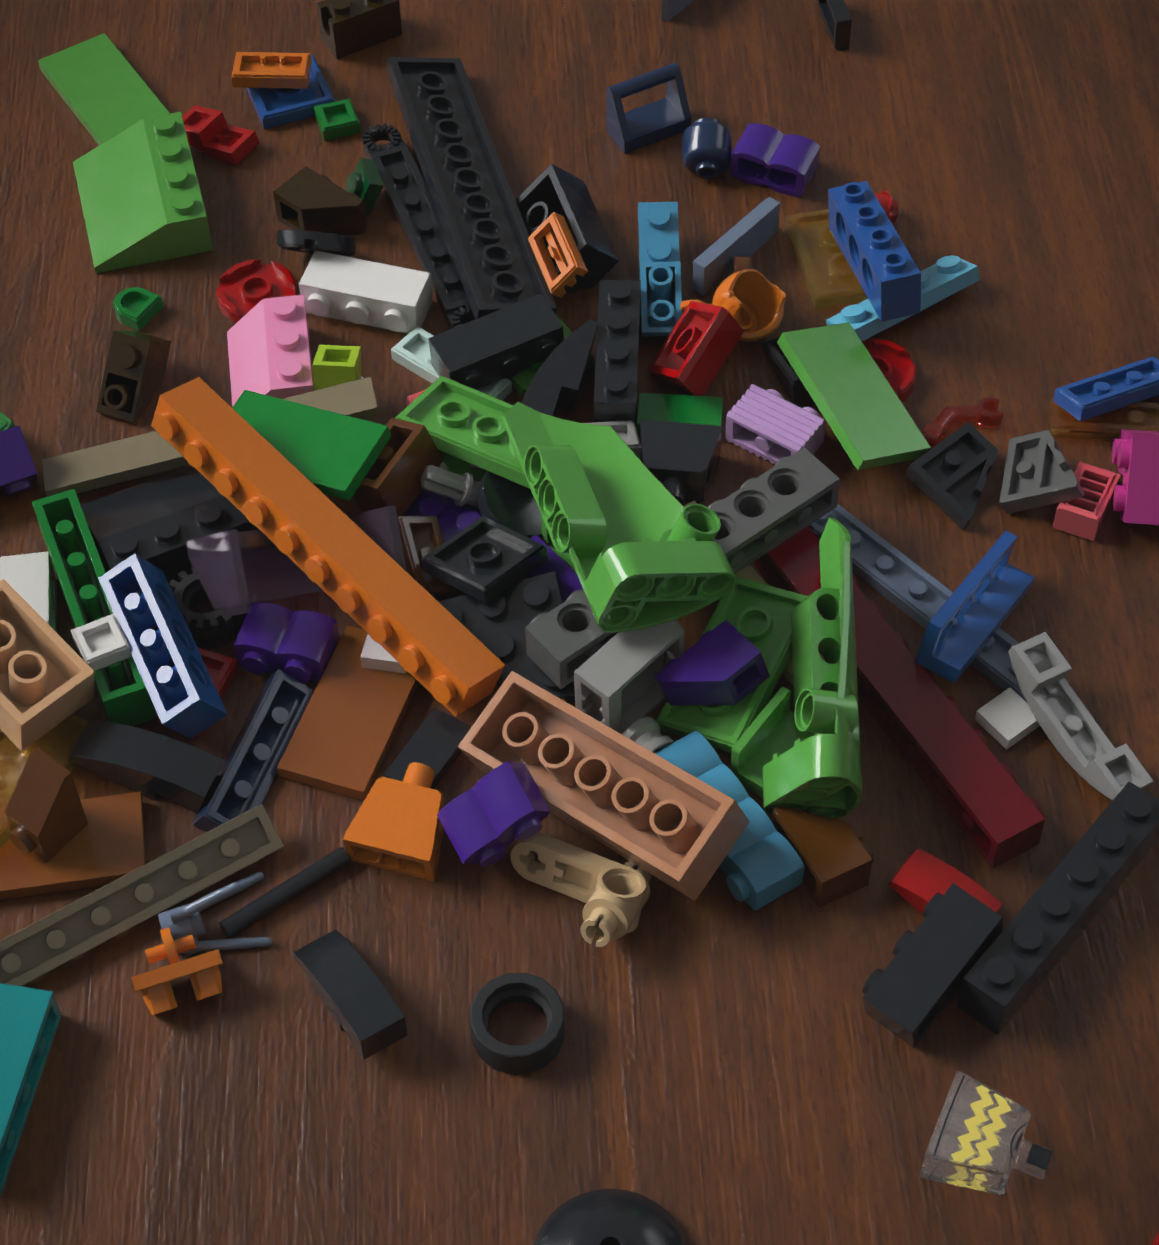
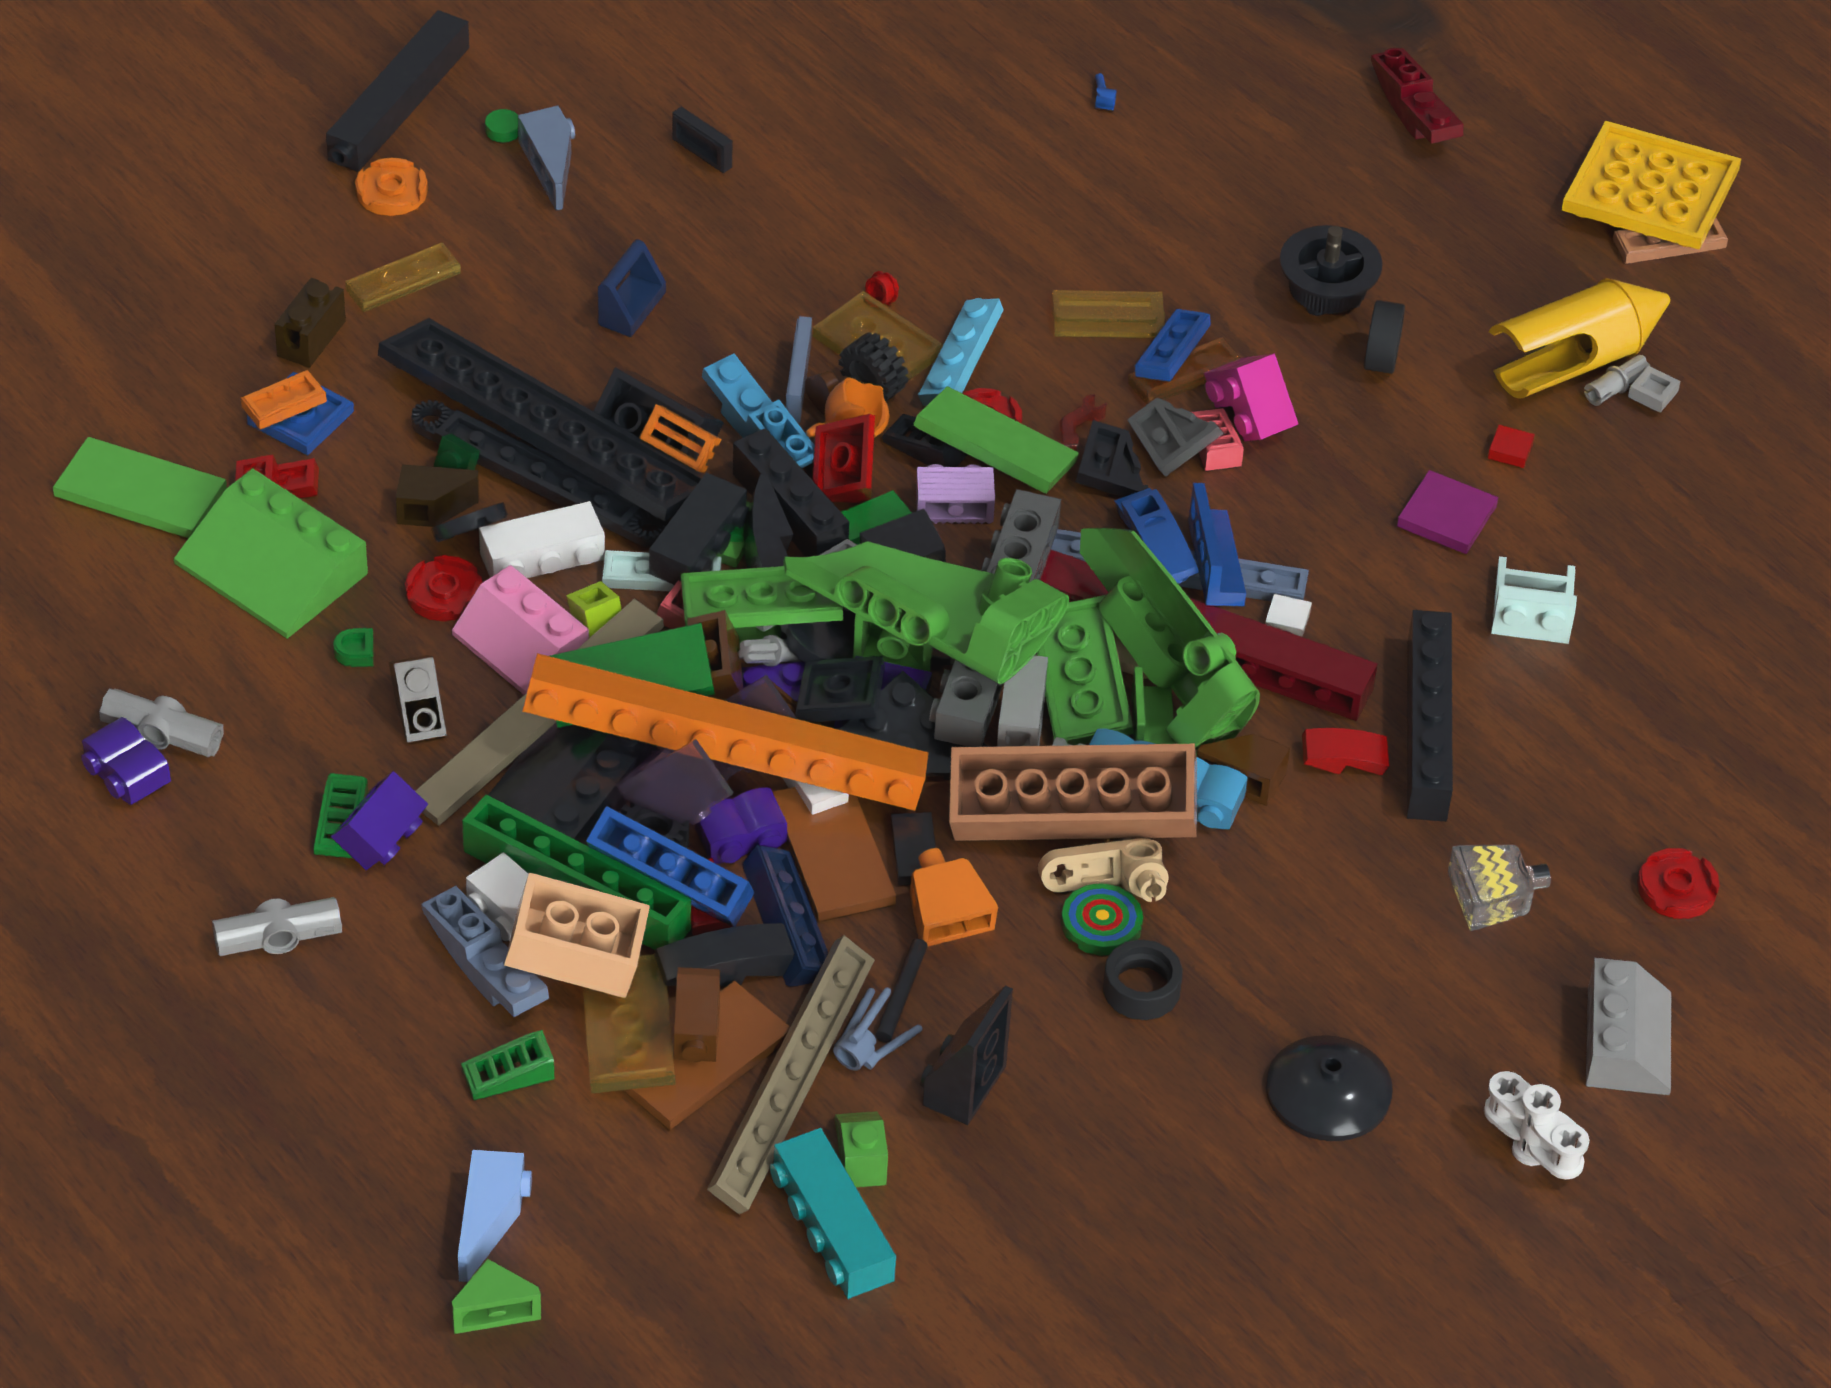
camera: 40 degrees left, 5 degrees down
(89, 1032) = (863, 1147): none -> bright green slope
(101, 642) = (630, 882): white tile -> none
(156, 983) = (898, 1064): orange hips -> none
(255, 1013) = (970, 1060): none -> black slope
(337, 119) = (367, 417): green tile -> none
(352, 993) = (1033, 1021): black slope -> none
(479, 18) = (402, 277): none -> clear yellow tile
(494, 813) = (1020, 850): dark purple brick -> none
(539, 932) = (1101, 918): none -> green tile
(707, 148) = (705, 300): dark blue head -> none
(714, 670) = (1081, 679): dark purple slope -> none
(774, 159) = (766, 286): dark purple brick -> none
(797, 274) = (875, 363): none -> black tyre
(874, 251) = (922, 320): blue brick -> none
(924, 566) = (1155, 525): none -> blue slope
(930, 964) = (1380, 793): black brick -> none
(1068, 723) = (1335, 599): light grey slope -> none
(1083, 330) = (1107, 313): none -> clear yellow piece

